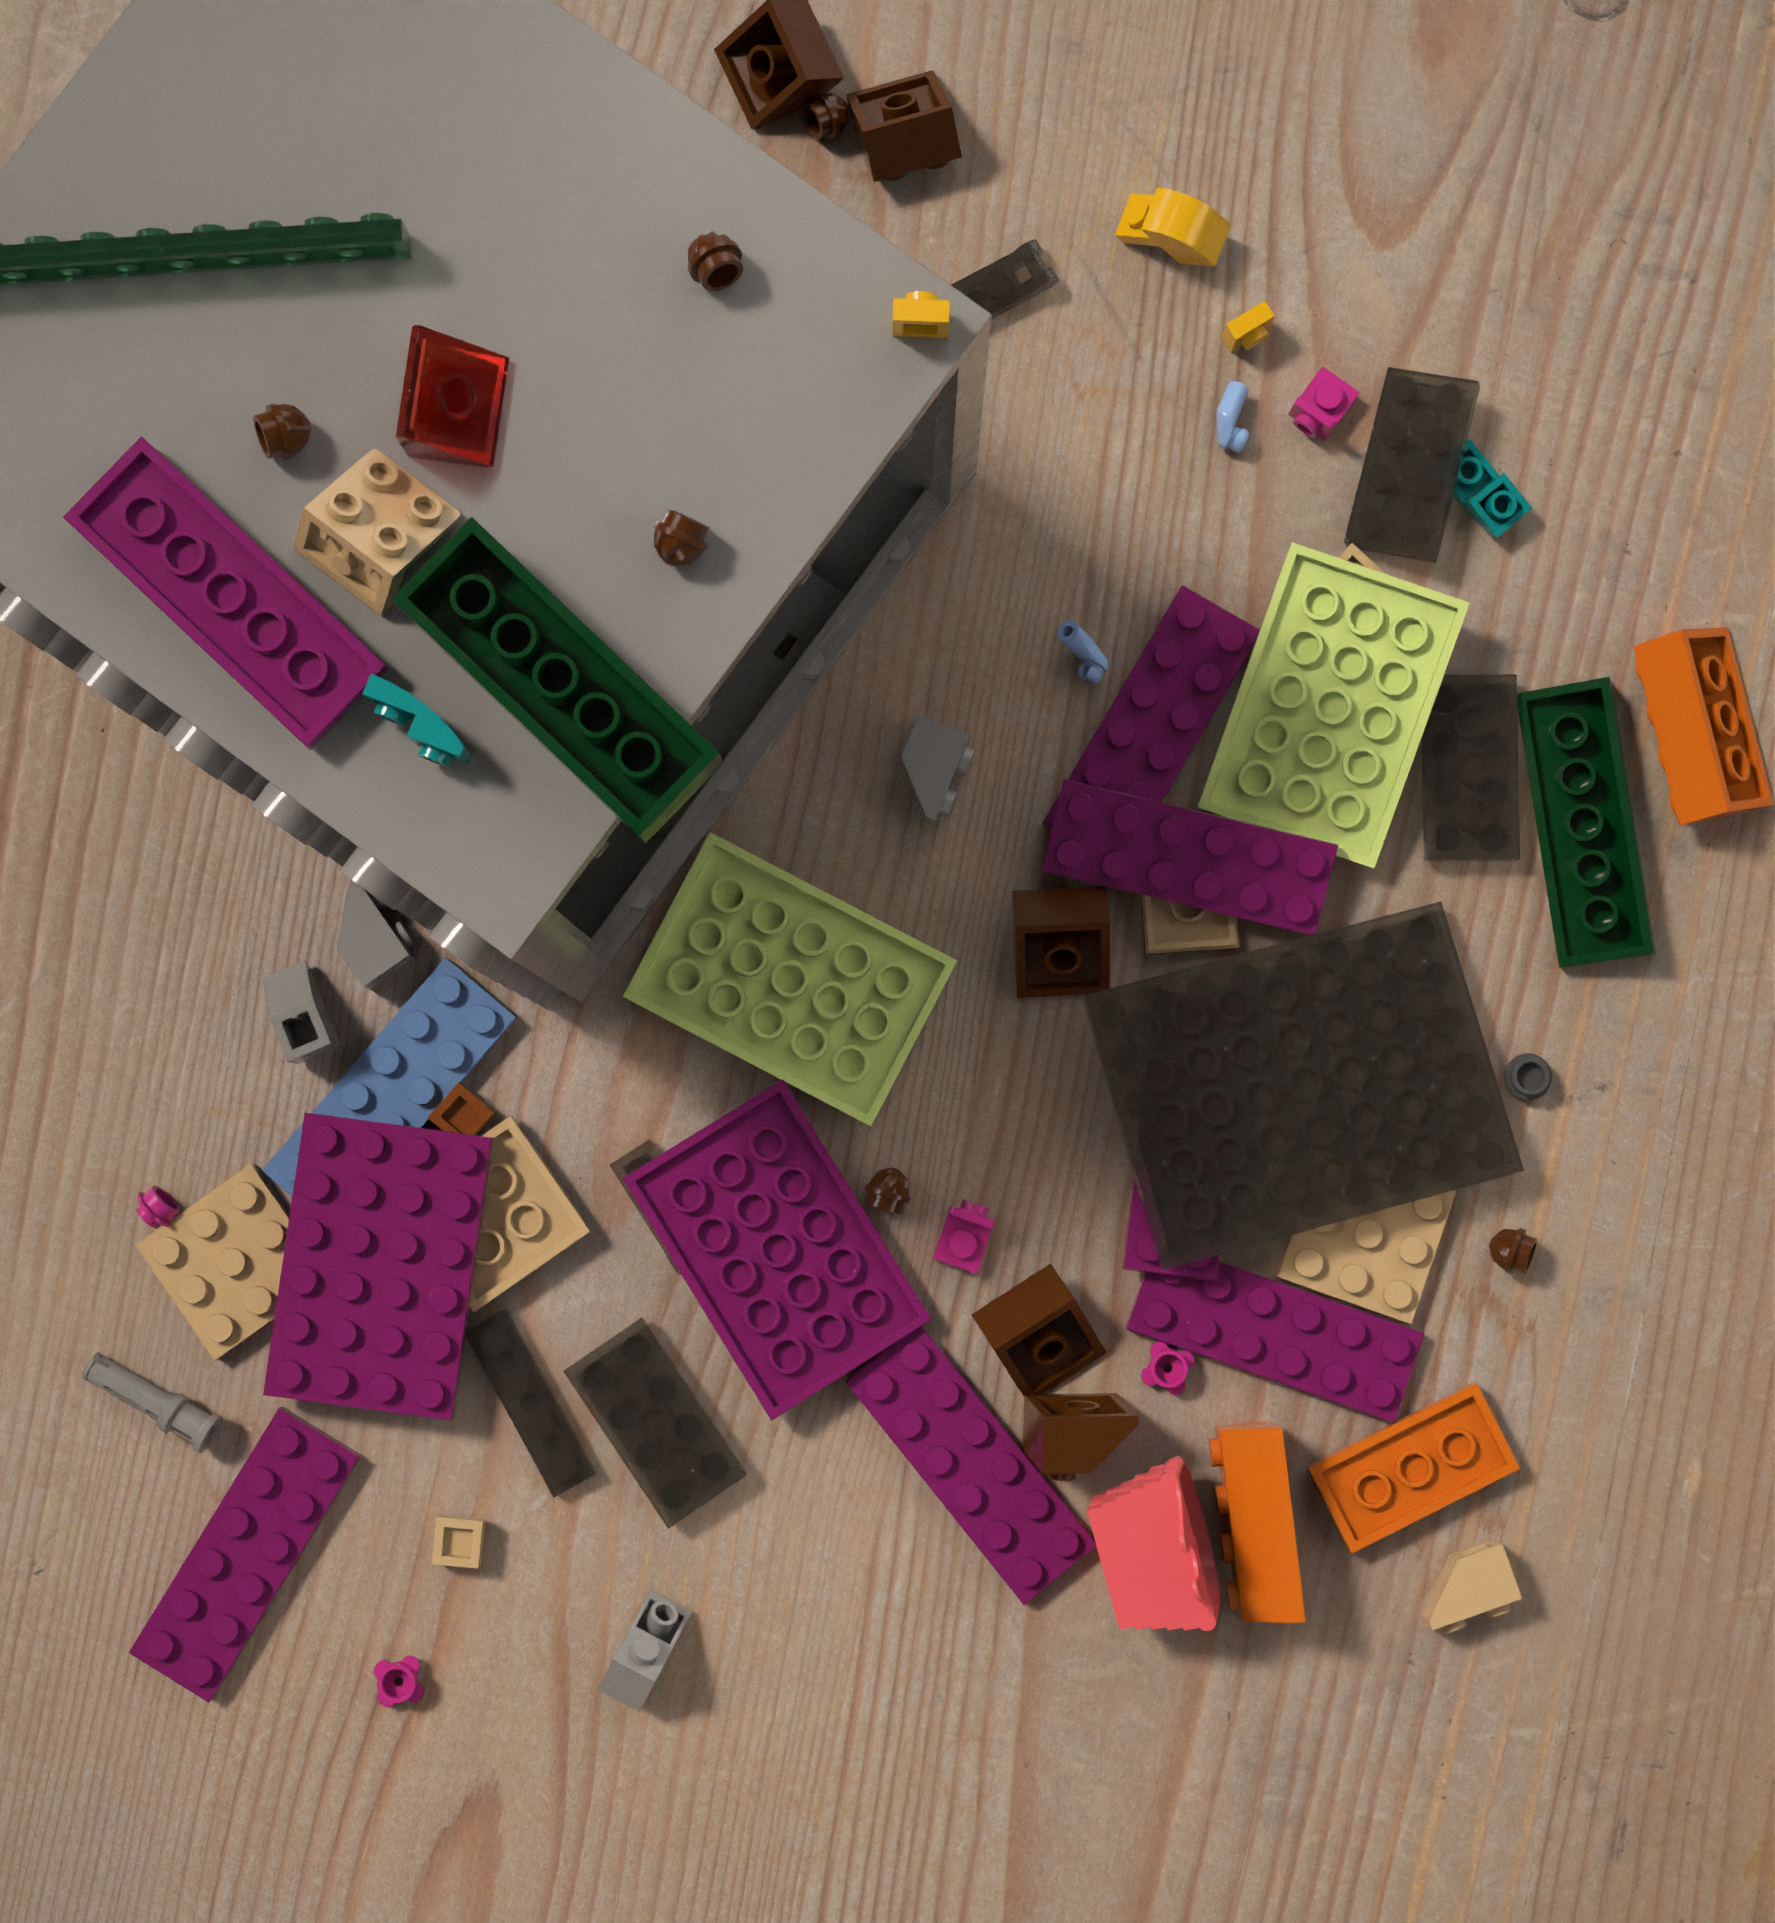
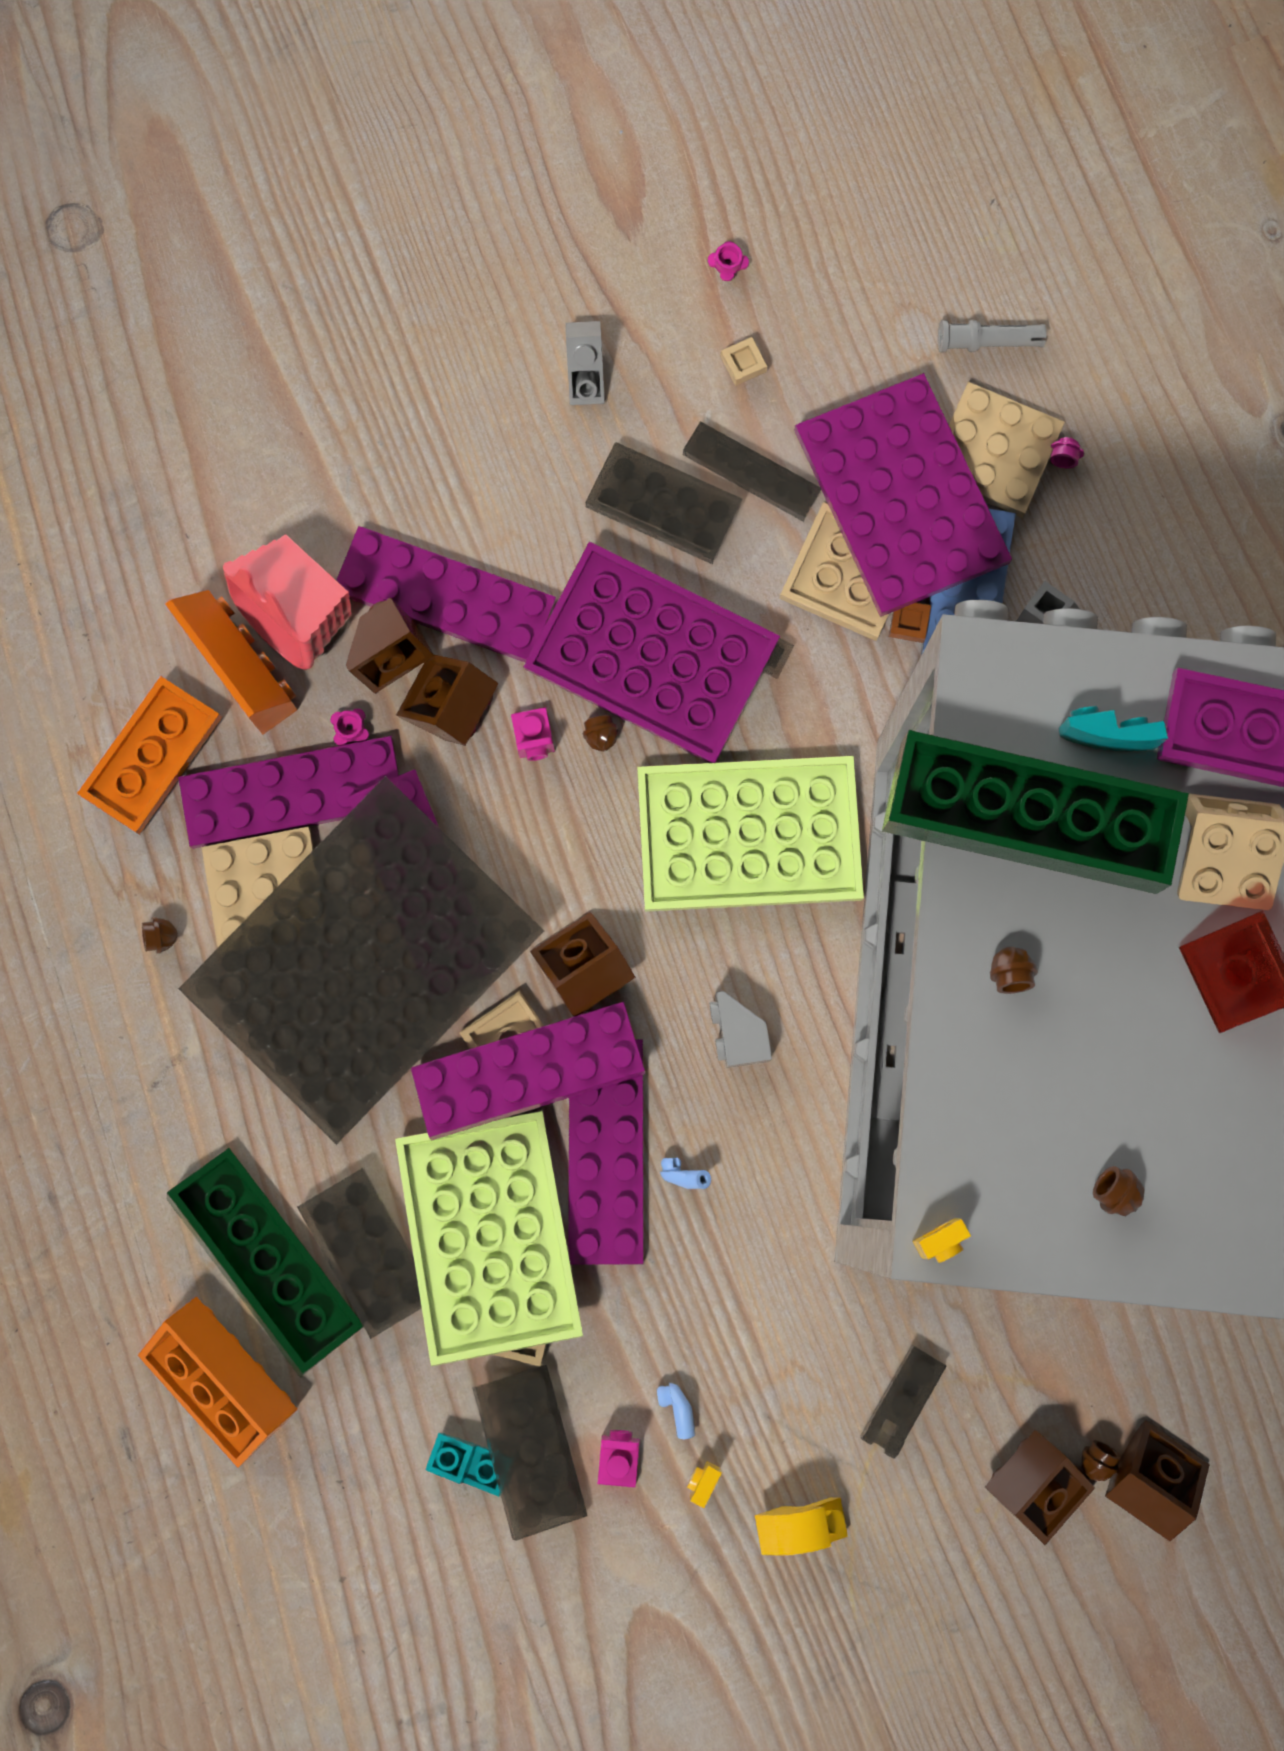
camera: 145 degrees right, 5 degrees down
(245, 1554) = (872, 282): magenta plate -> none
(1471, 1584) = (70, 700): tan slope -> none
(1527, 1076) = (211, 1059): dark grey plate -> none

